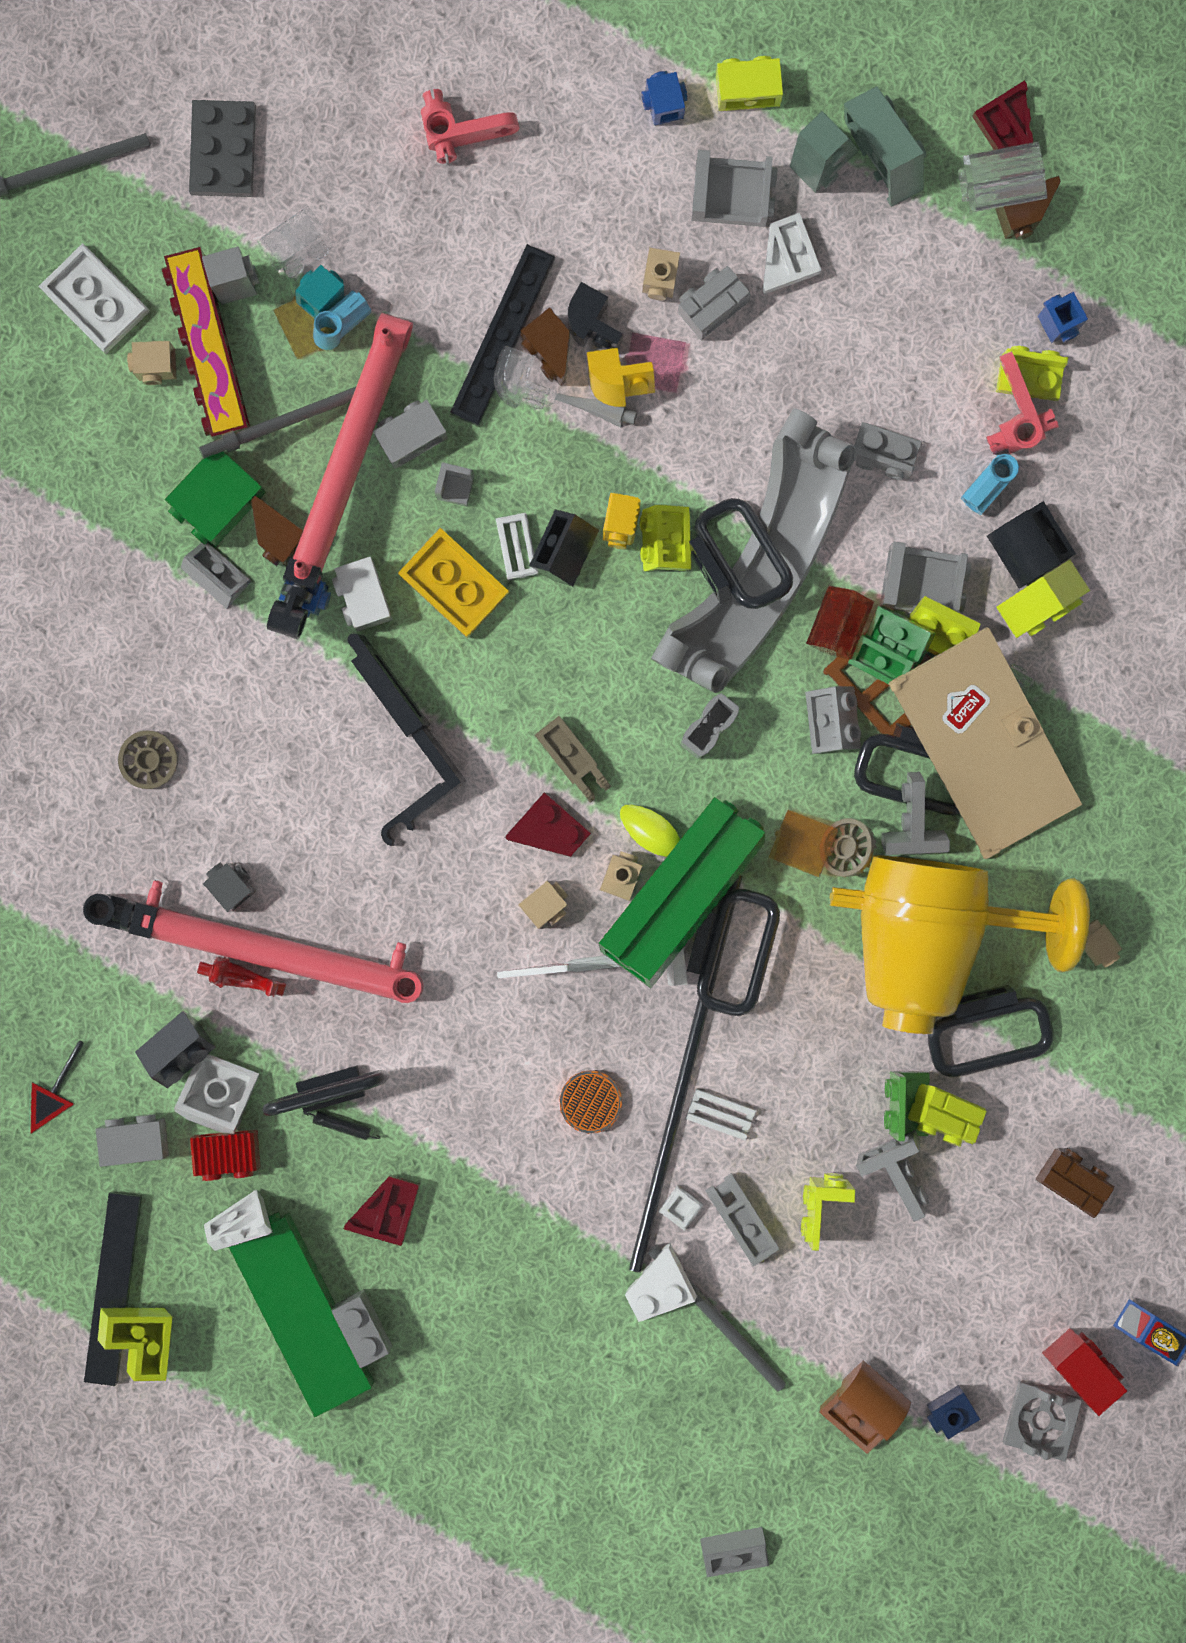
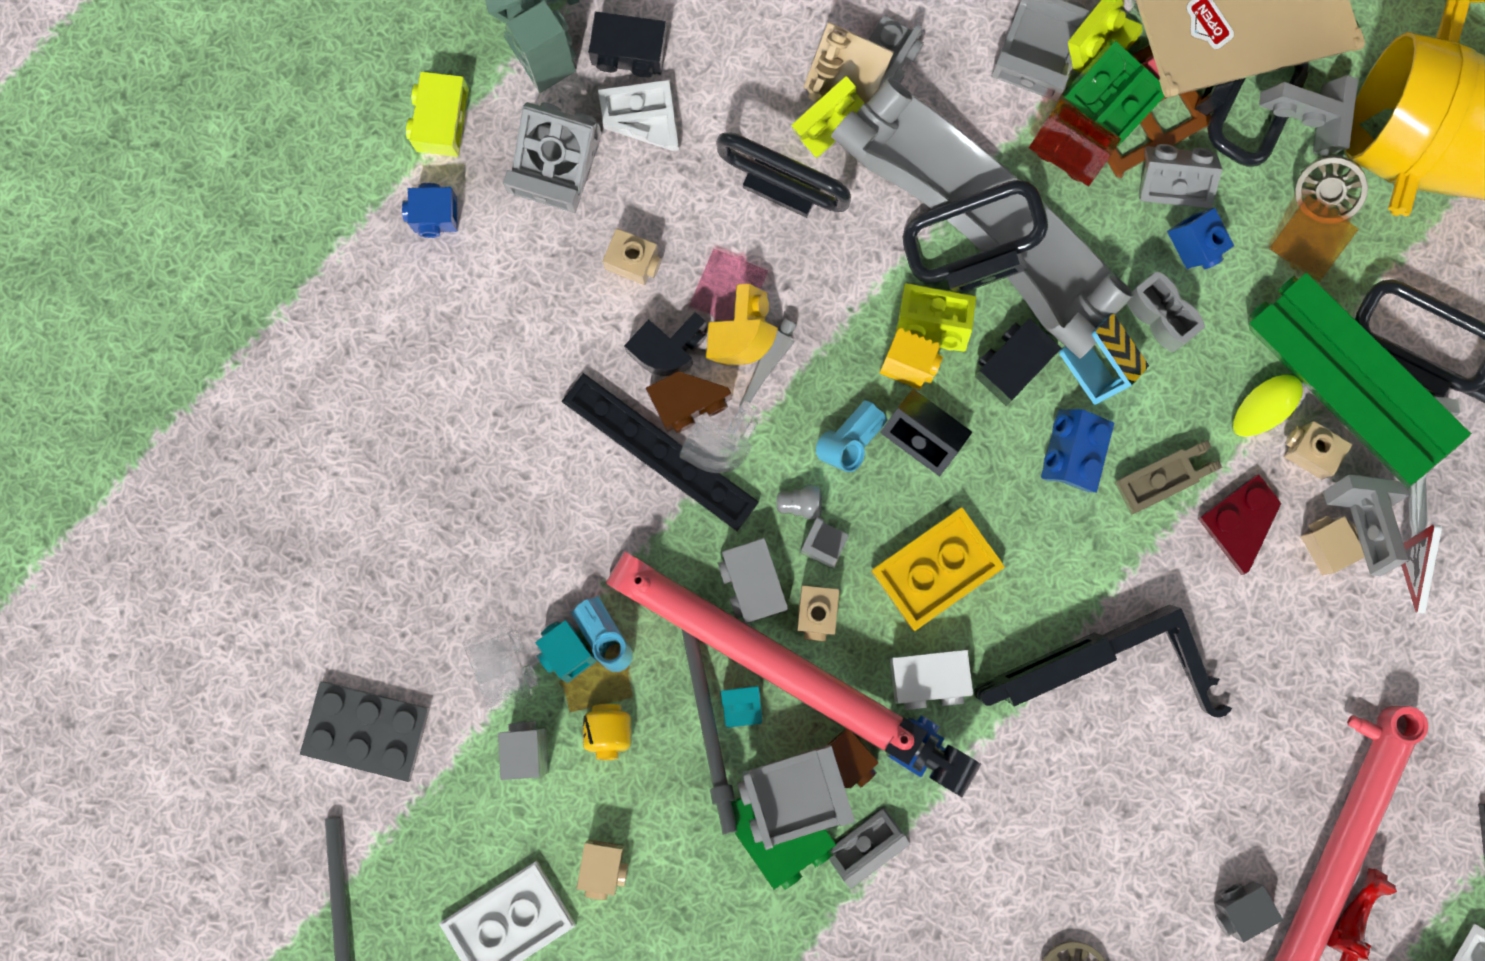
camera: 70 degrees left, 5 degrees down
(206, 342) = (596, 799): brick -> none
(240, 498) = (795, 797): none -> light grey panel
(263, 341) = (607, 731): none -> yellow head
(307, 445) = (741, 706): none -> teal bracket
(396, 491) = (817, 612): none -> tan brick
(462, 133) = (387, 465): coral piece -> none
(485, 462) = (801, 502): none -> light grey piece
(522, 573) = (876, 487): white tile -> none
(546, 487) = (847, 446): none -> medium azure piece
(578, 680) = (1077, 449): none -> blue bracket
(583, 925) = (1374, 518): none -> light grey bracket
(641, 612) = (1017, 361): none -> black brick
(655, 685) = (1120, 352): none -> piece
(713, 302) = (677, 205): light grey brick -> none
(736, 160) = (583, 130): none -> light grey piece
(754, 382) = (782, 178): none -> black bar
(779, 745) = (1201, 239): none -> blue brick
(823, 409) = (821, 120): none -> neon yellow bracket
(845, 229) = (627, 44): none -> black brick
(863, 416) = (849, 55): none -> tan hinge

